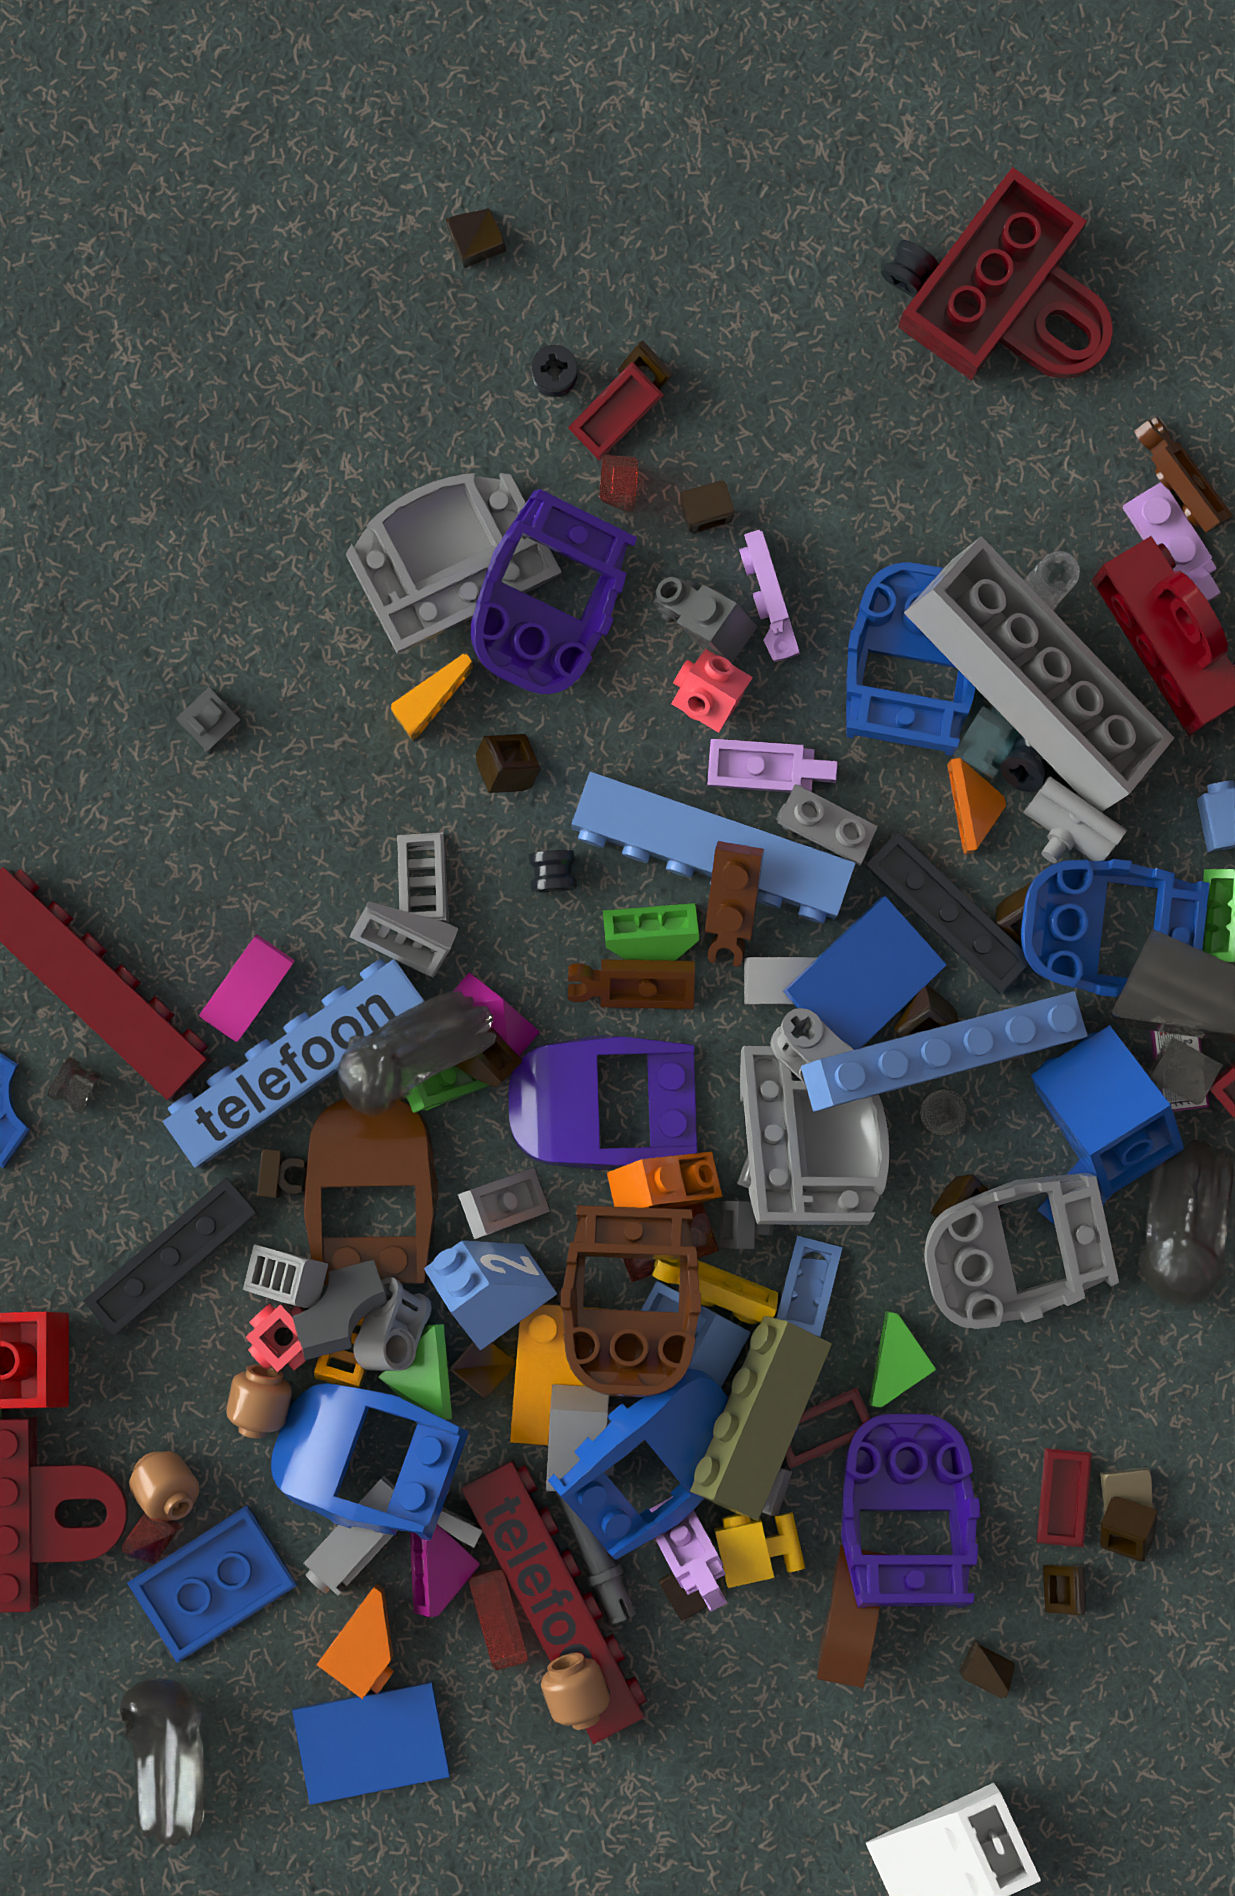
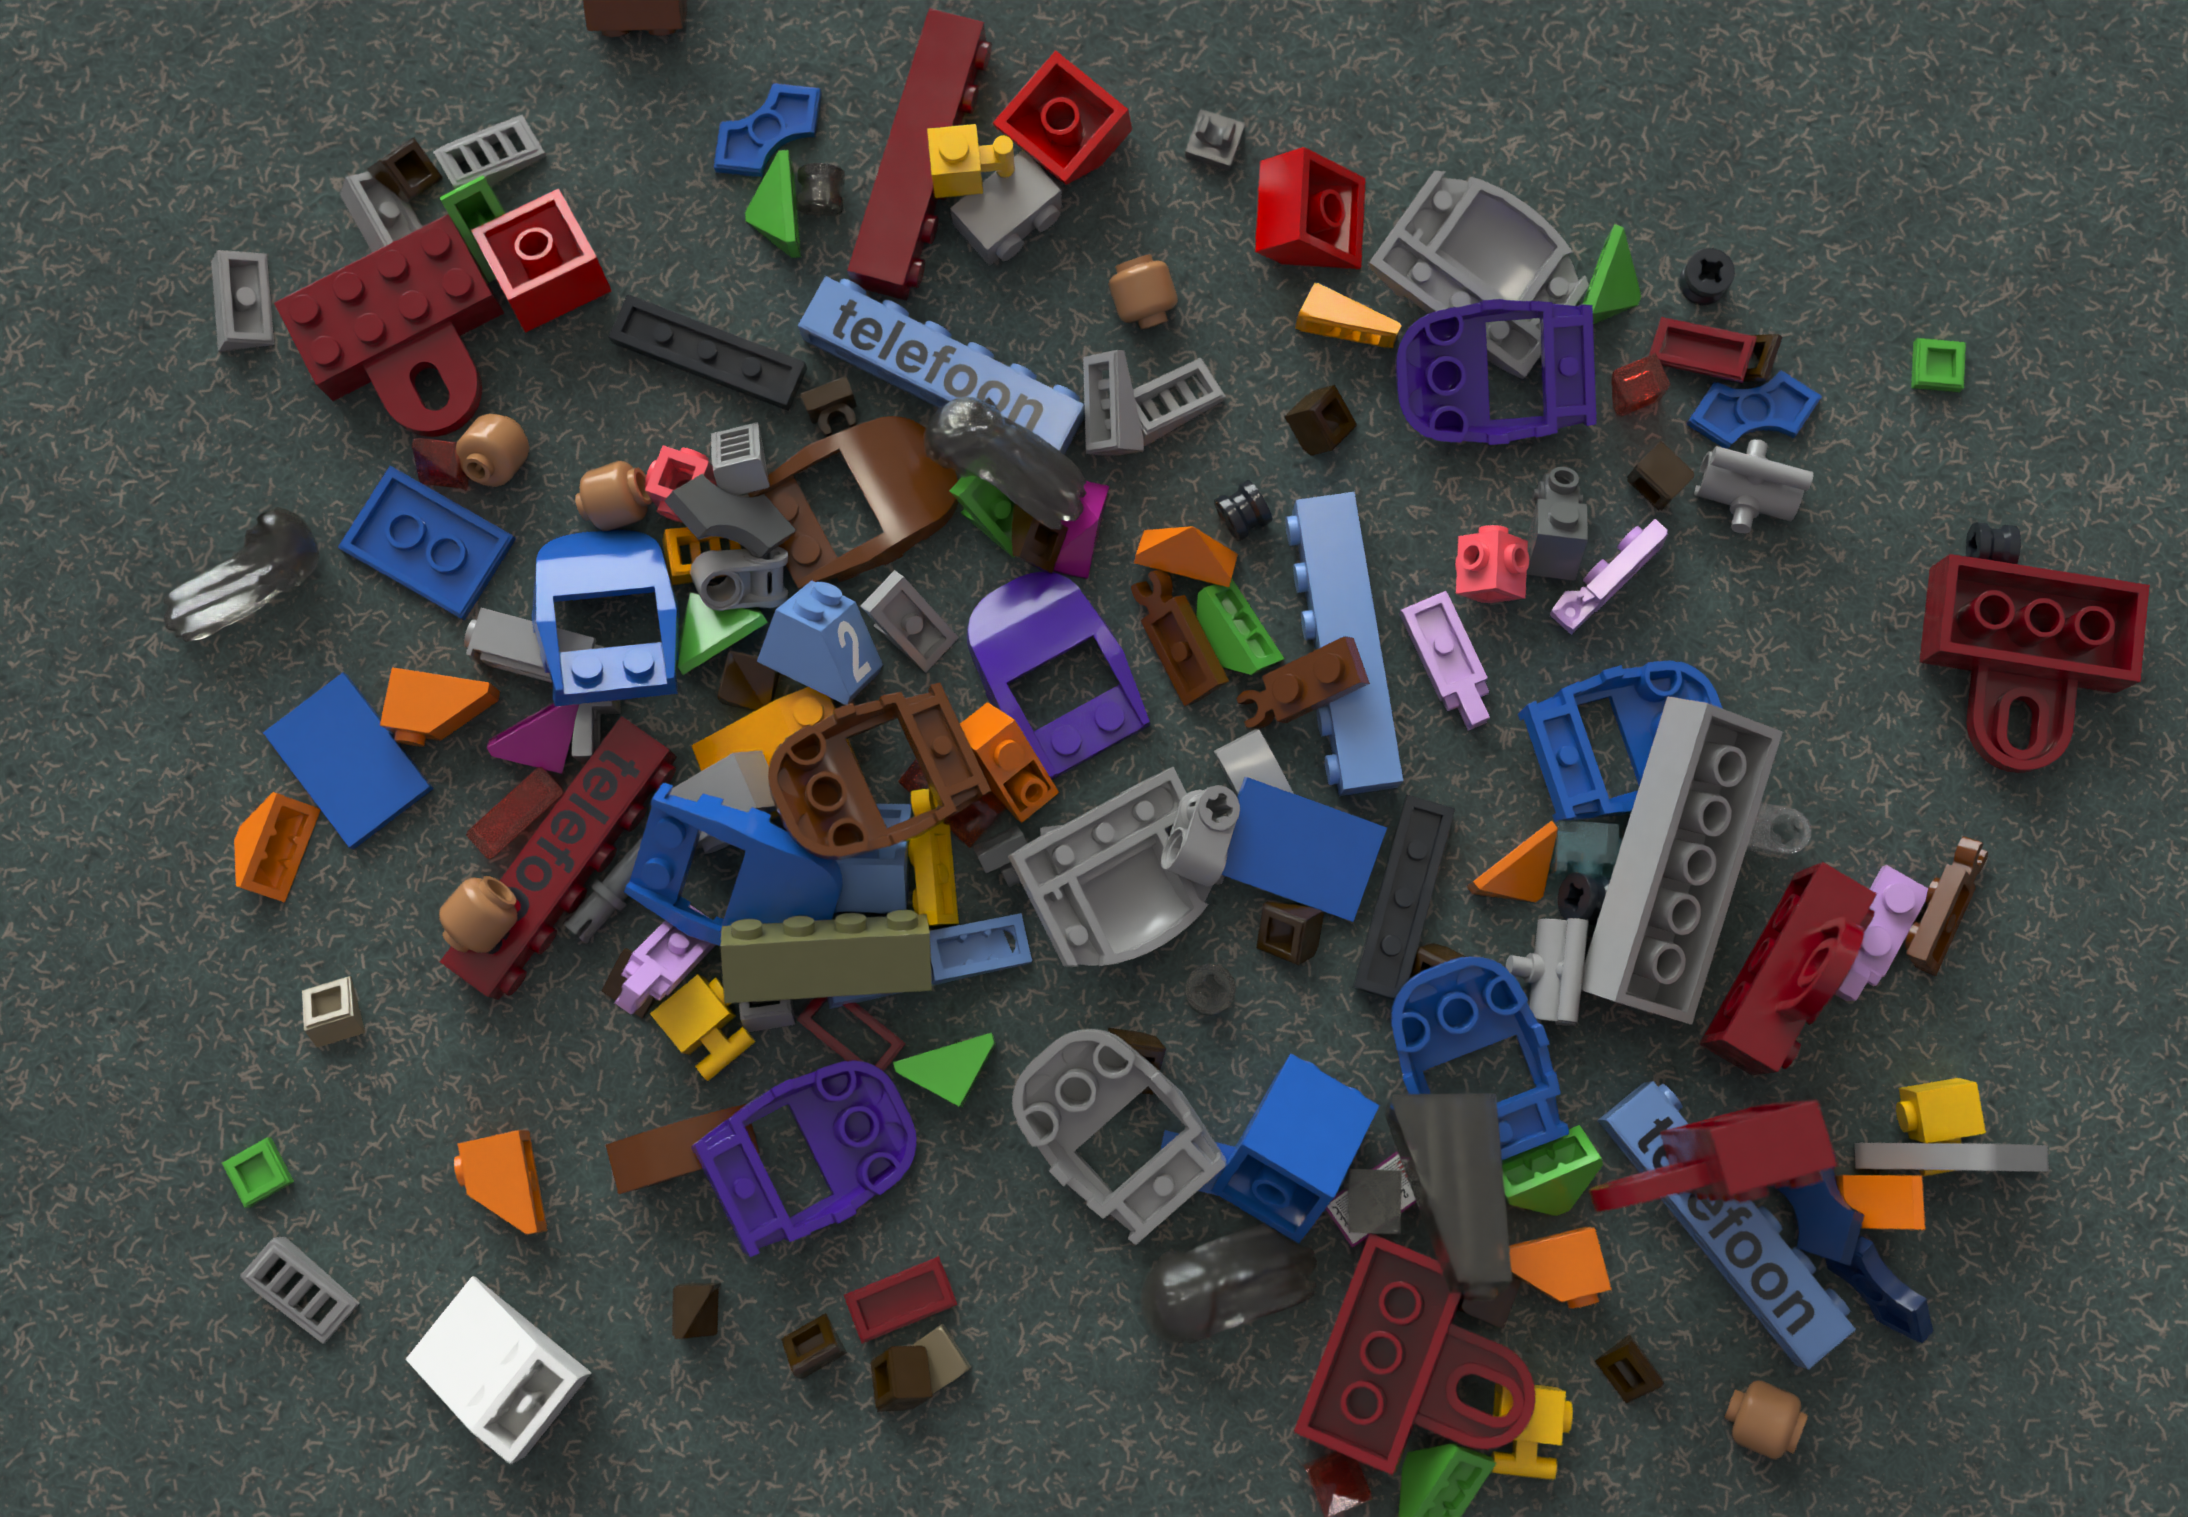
camera: 65 degrees right, 5 degrees down
(68, 1133) = (774, 206): none -> bright green slope
(127, 954) = (960, 160): none -> yellow brick
(130, 845) = (1065, 120): none -> red slope
(179, 932) = (1008, 210): none -> light grey brick
(246, 988) = (988, 293): dark pink slope -> none
(315, 854) = (1143, 291): none -> medium nougat head
(320, 674) = (1310, 211): none -> red slope
(412, 1843) = (273, 845): none -> orange slope
(475, 236) = (1788, 146): dark brown slope -> none
(516, 450) = (1614, 281): none -> bright green slope
(568, 940) = (1187, 553): none -> orange slope
(581, 1858) = (331, 1012): none -> dark tan slope
(681, 416) = (1775, 406): none -> blue tile
(730, 220) = (1938, 365): none -> bright green tile
(754, 436) = (1752, 484): none -> light grey pin
(799, 1778) = (503, 1178): none -> orange slope
(826, 824) = (1424, 738): light grey hinge -> none
(943, 1051) = (1268, 953): medium blue brick -> none

